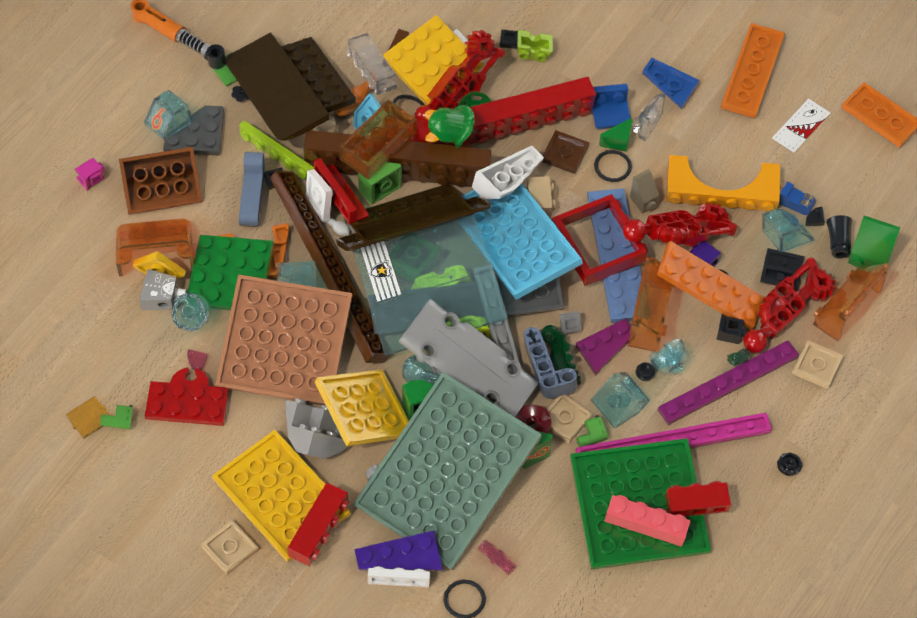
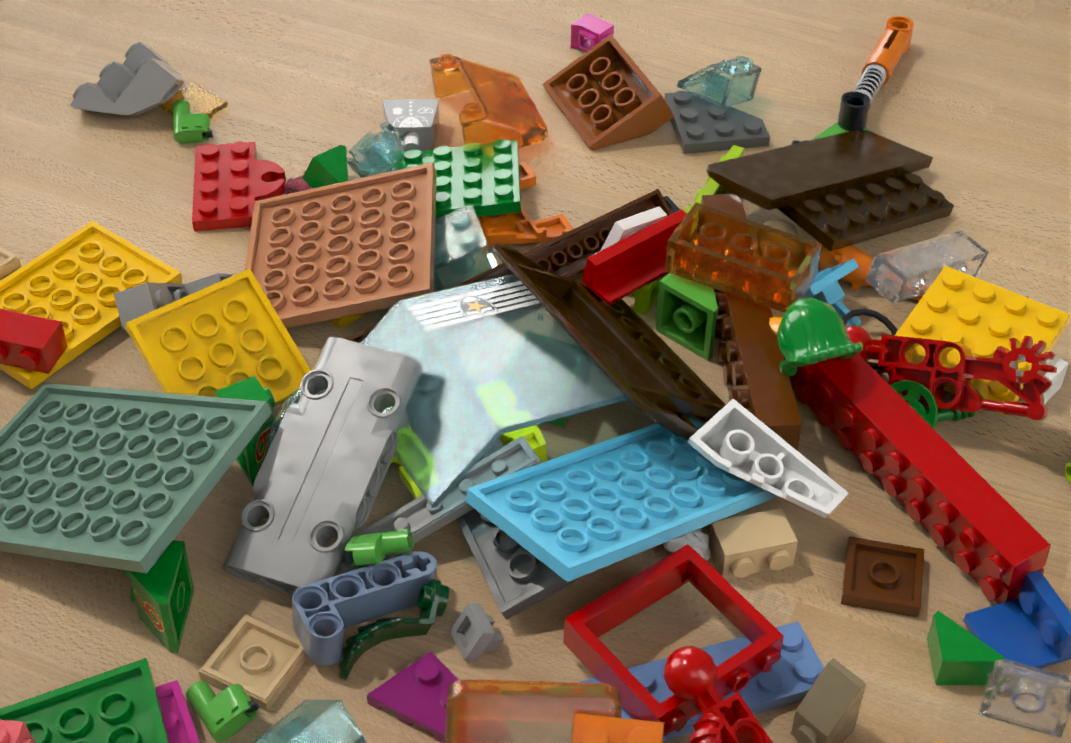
camera: 80 degrees right, 15 degrees down
(69, 446) = (130, 87): none -> light grey brick
(159, 263) = (447, 111): yellow tile -> none
(203, 340) = (327, 168): none -> green slope
(252, 188) = (620, 185): sand blue beam -> none
(518, 352) = (373, 547): none -> bright green piece
(535, 415) = (228, 601): dark red dish -> none
(613, 152) = (891, 693): black piece -> none

